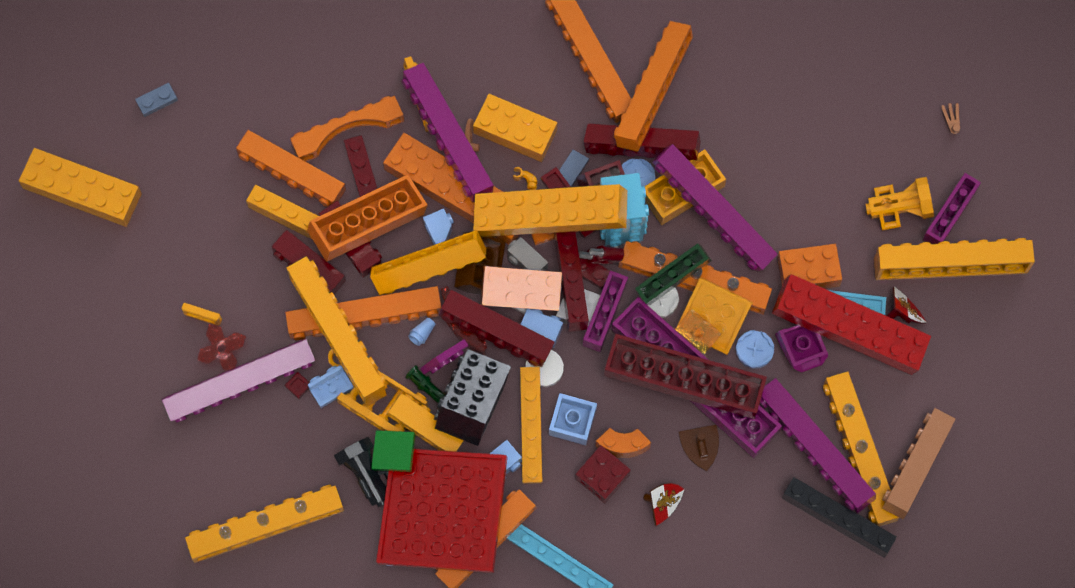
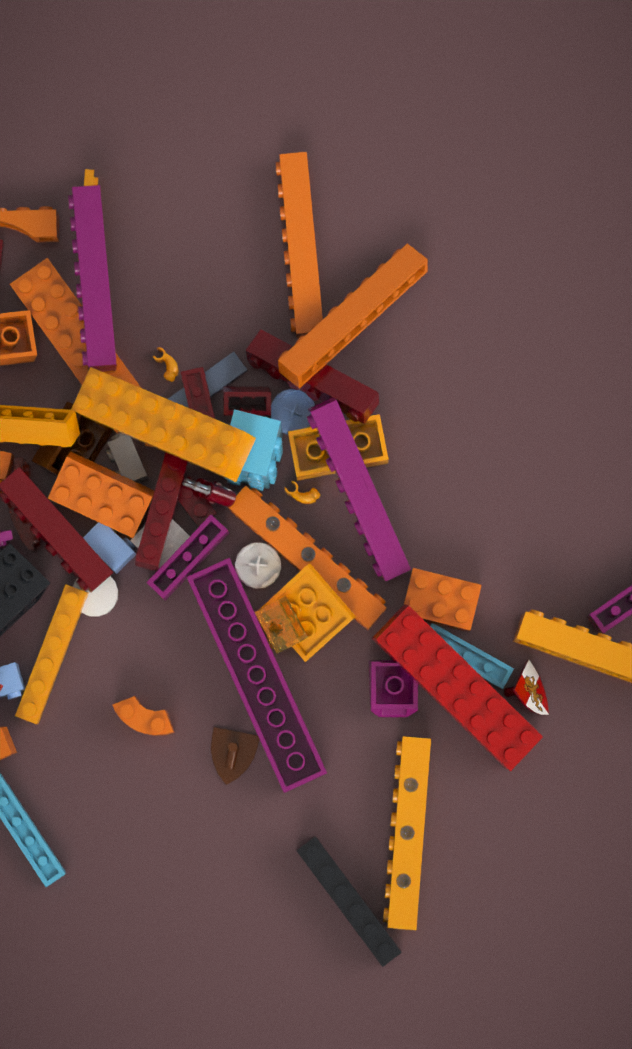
camera: 25 degrees right, 10 degrees up
(438, 226) = (43, 384): light blue slope -> none
(468, 133) = (123, 288): nougat piece -> none
(515, 127) = (178, 300): light orange brick -> none
(572, 419) = (98, 668): light blue brick -> none
(602, 474) = (106, 744): dark red piece -> none
(664, 500) = (161, 802): shield -> none
(673, 274) = (278, 549): dark green brick -> none
(676, 234) = (306, 497): none -> light orange arm
(685, 376) = (238, 674): dark red brick -> none
(755, 349) = (340, 667): light blue tile -> none
(817, 446) = (357, 811): magenta brick -> none
(914, 200) = (595, 568): light orange piece -> none
(918, 464) = (464, 878): nougat brick -> none

